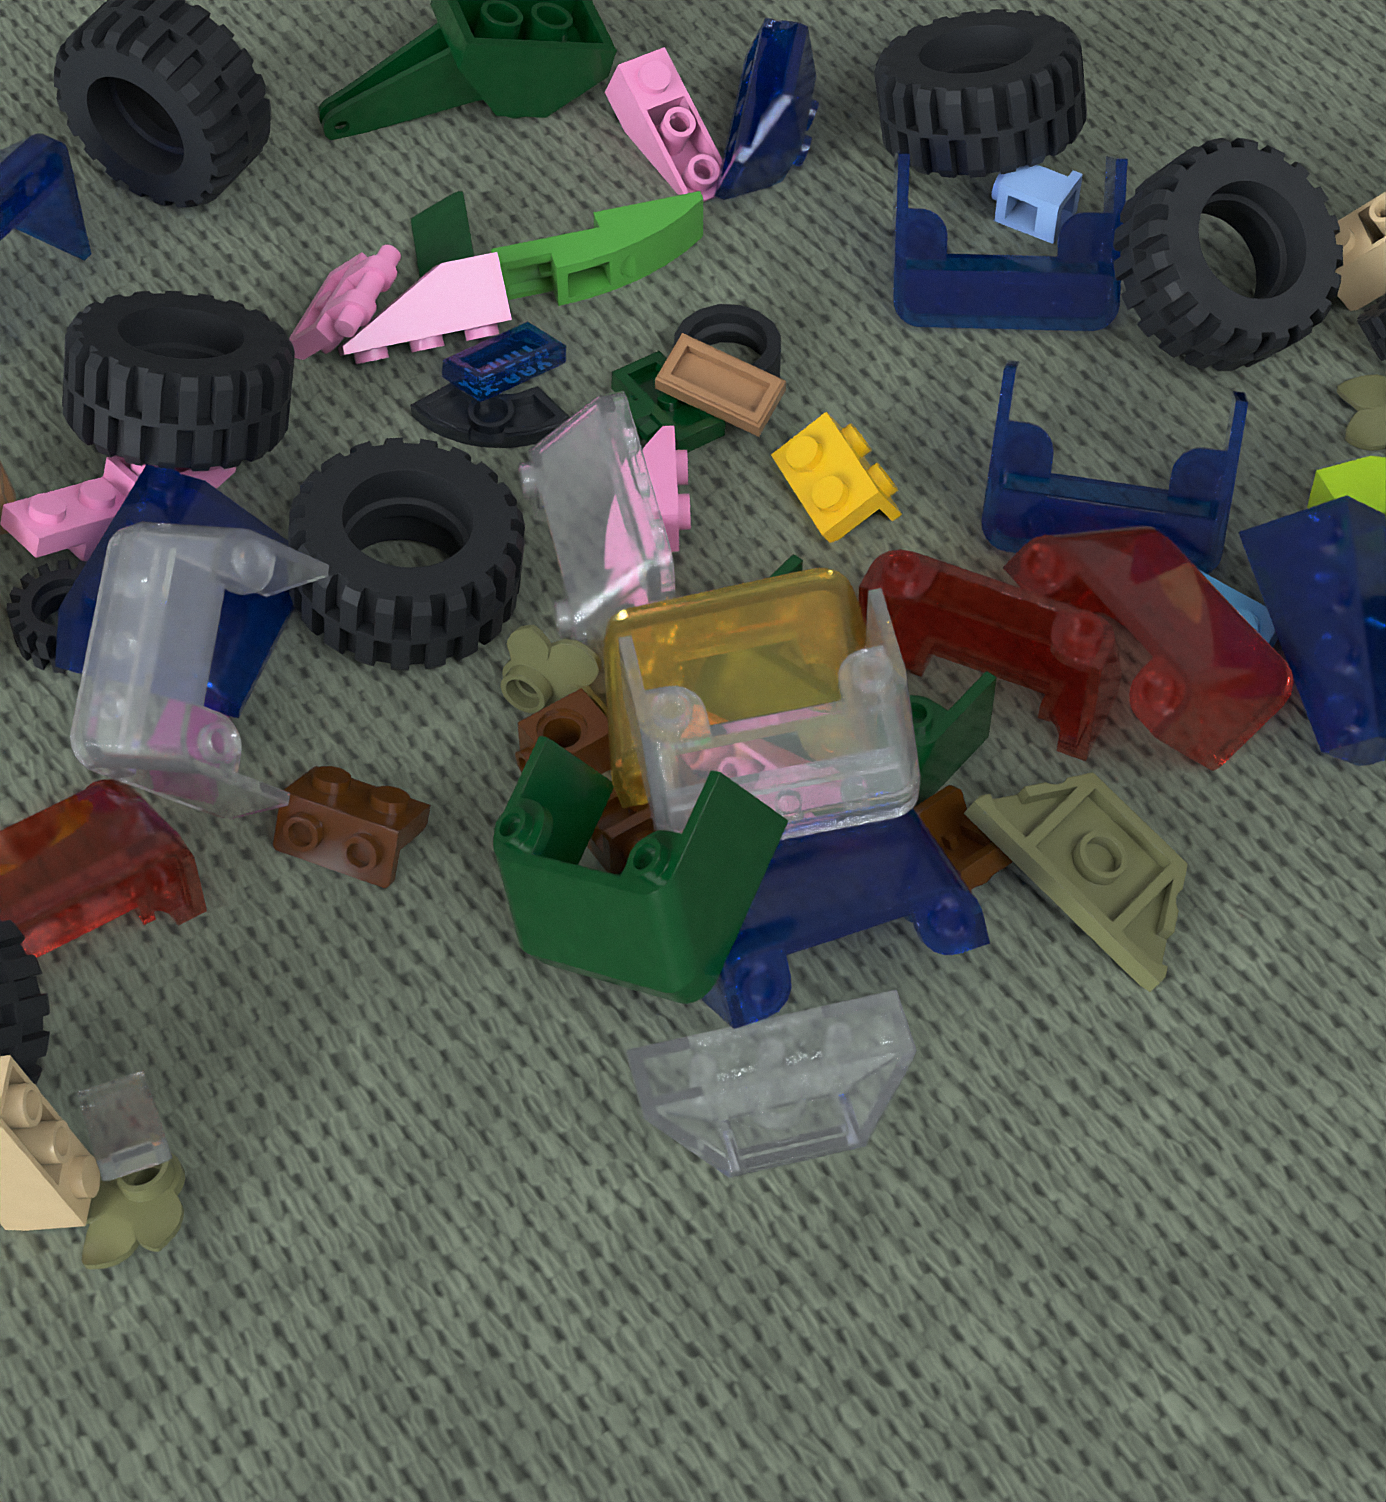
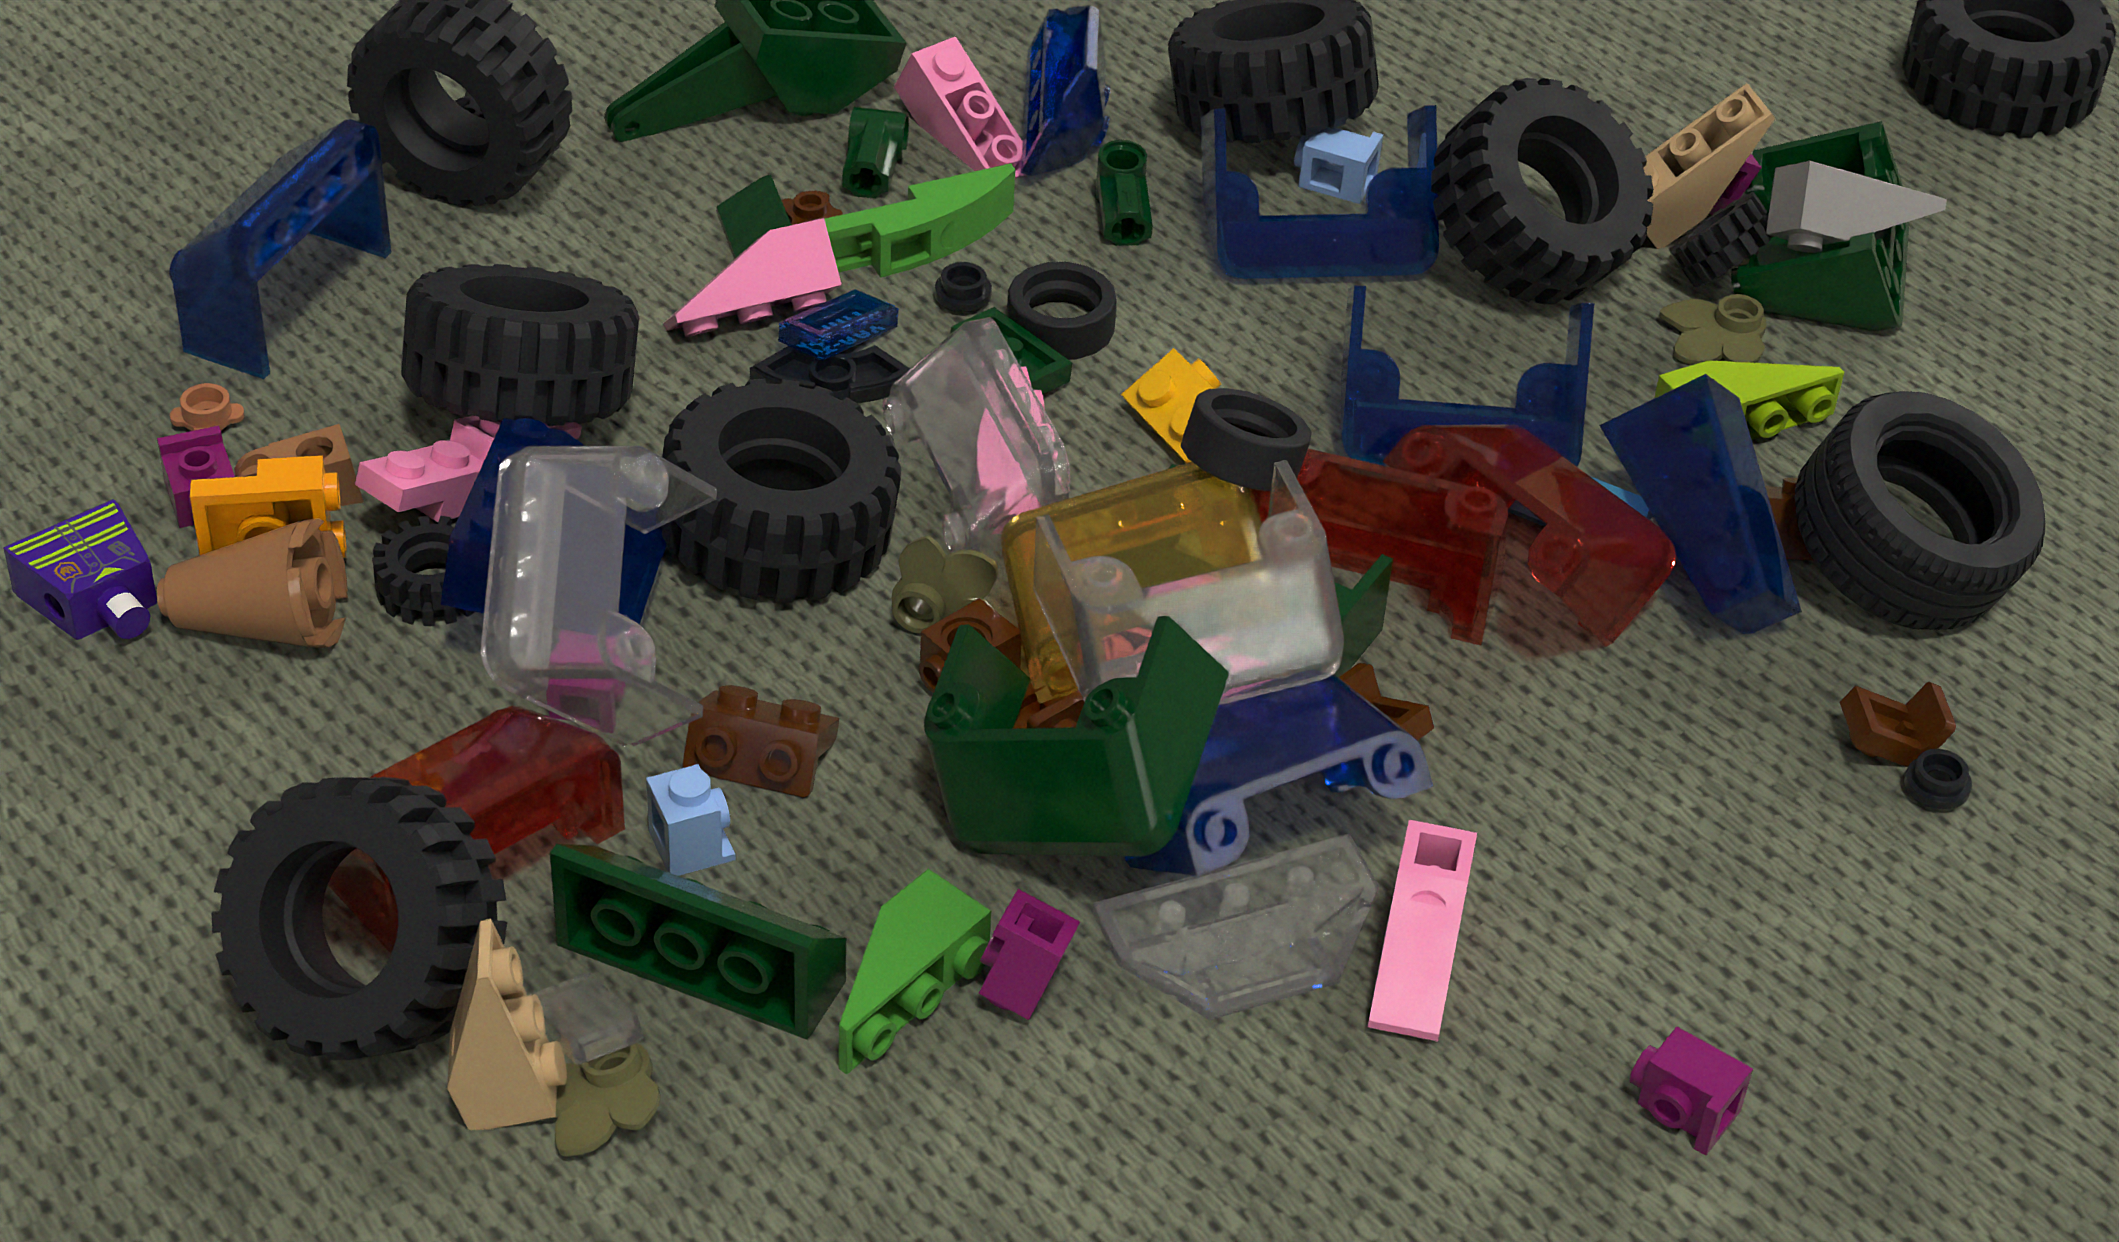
camera: 10 degrees left, 10 degrees down
(247, 1043) = (695, 938): none -> dark green slope
(262, 914) = (688, 820): none -> light blue brick
(345, 302) = (674, 272): bright pink plate -> none
(453, 1079) = (915, 953): none -> bright green slope
(498, 229) = (809, 207): none -> reddish brown plate
(559, 1090) = (1025, 953): none -> magenta brick
(573, 160) = (873, 149): none -> dark green piece
(635, 324) = (963, 287): none -> black plate
(720, 384) = (1064, 329): medium nougat tile -> none
(811, 225) = (1123, 193): none -> dark green piece
(857, 528) = (1243, 436): none -> black tyre
(960, 1093) = (1422, 930): none -> bright pink slope
(1094, 864) = (1512, 725): olive wing -> none
(1202, 1291) = (1691, 1086): none -> magenta brick

